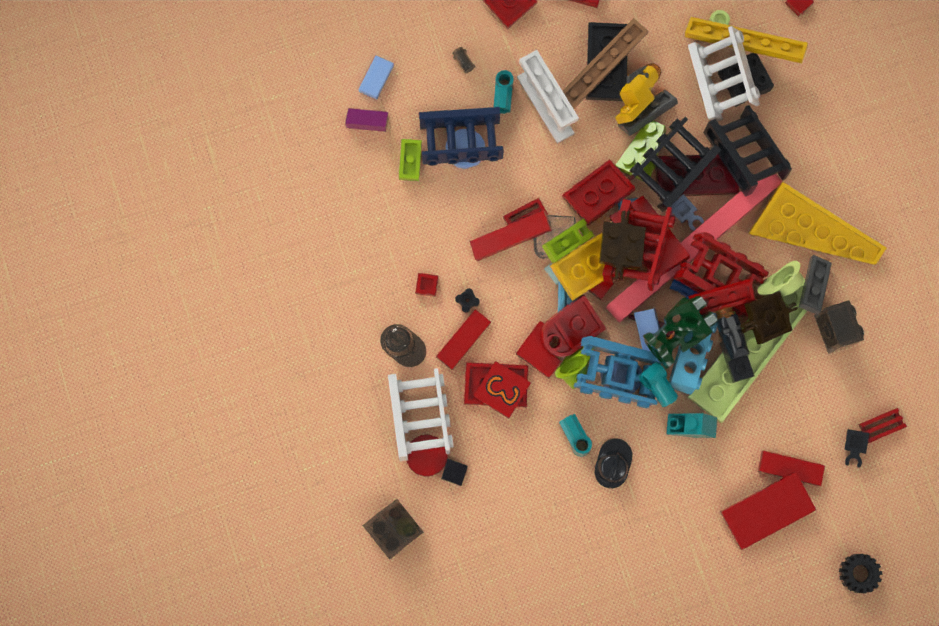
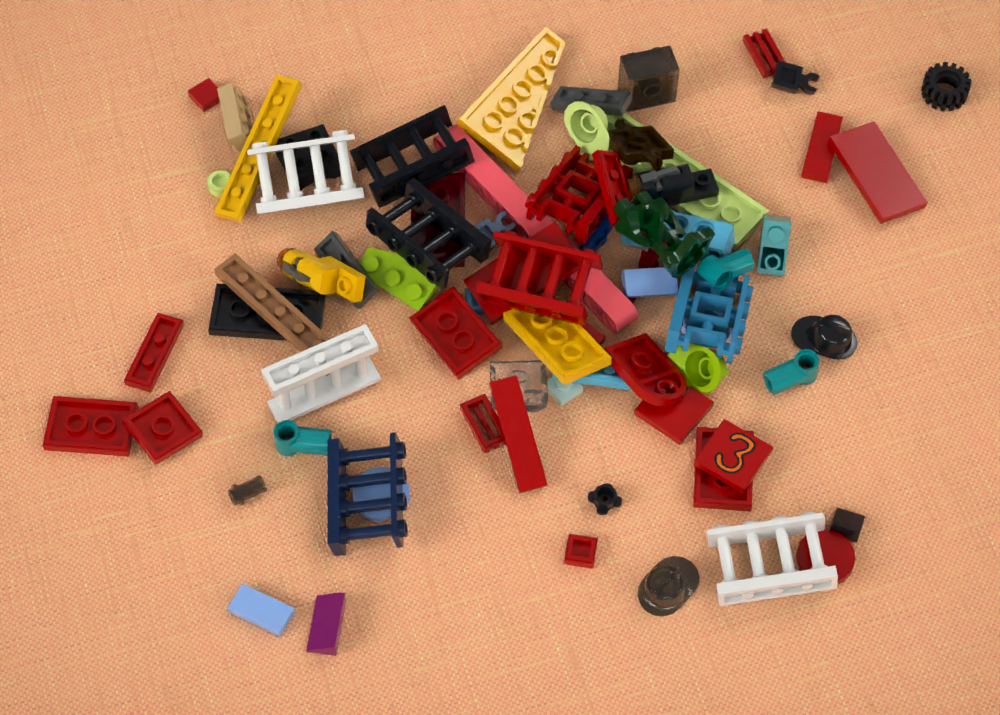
camera: 85 degrees left, 20 degrees down
(393, 529) = (935, 598): clear smoke slope -> none
(410, 159) = (394, 564): lime plate -> none
(463, 339) = (661, 506): red tile -> none
(567, 241) = (528, 363): lime plate -> none
(622, 245) = (544, 289): dark brown plate -> none
(777, 22) = (235, 114): none -> tan piece

